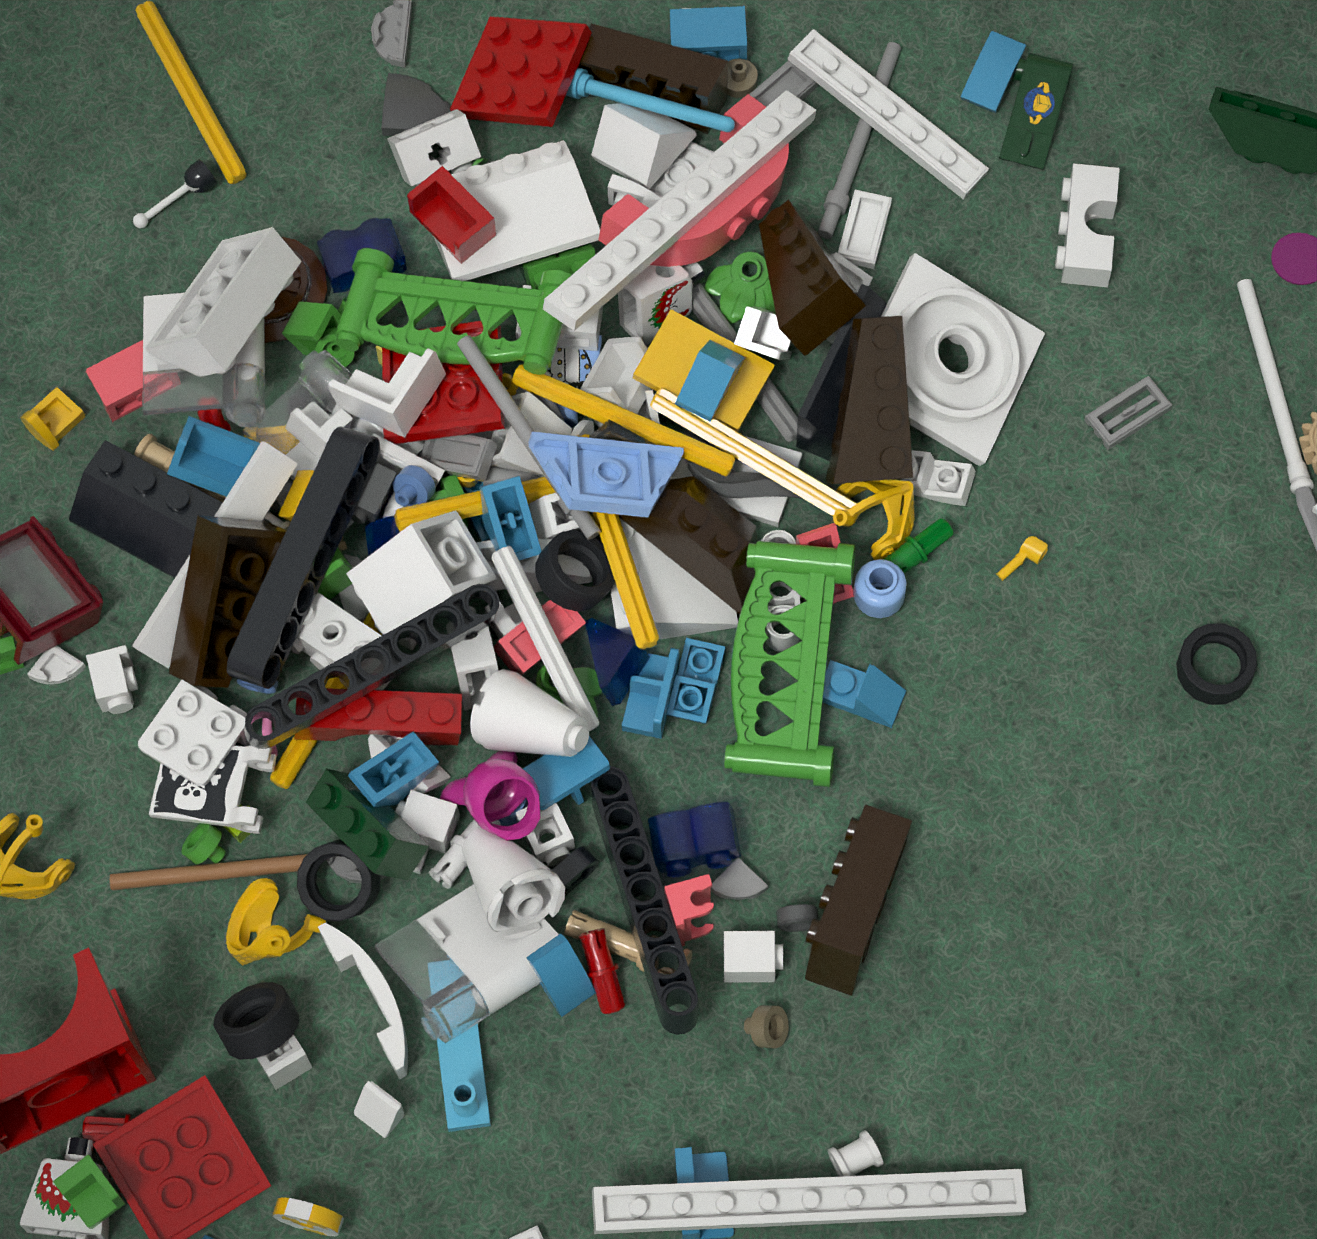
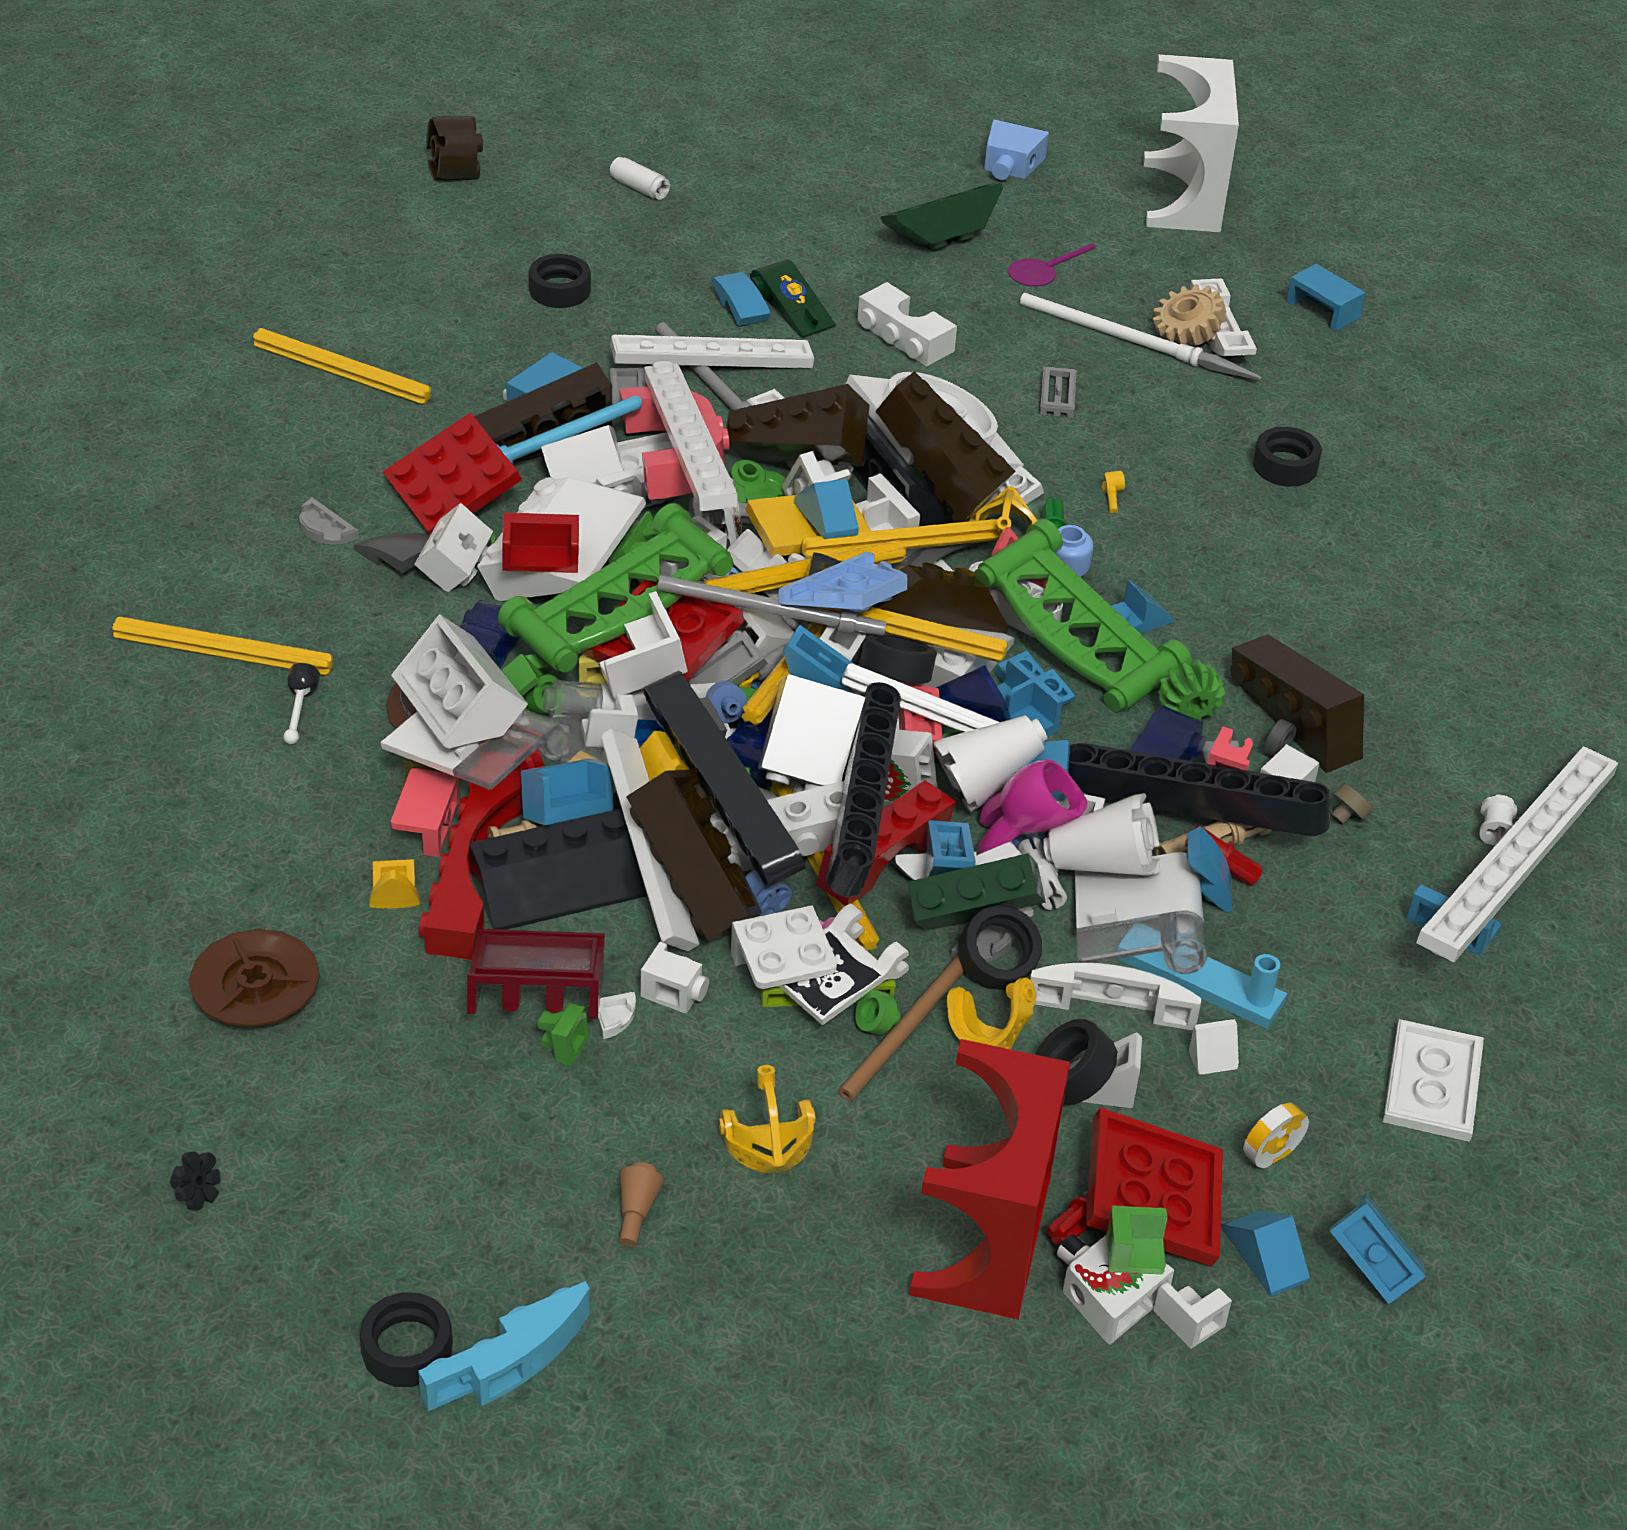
camera: 55 degrees left, 25 degrees down
(52, 483) = (453, 902): none -> red arch
(777, 414) = (886, 507): none -> white panel
(779, 811) = (1192, 690): none -> bright green gear

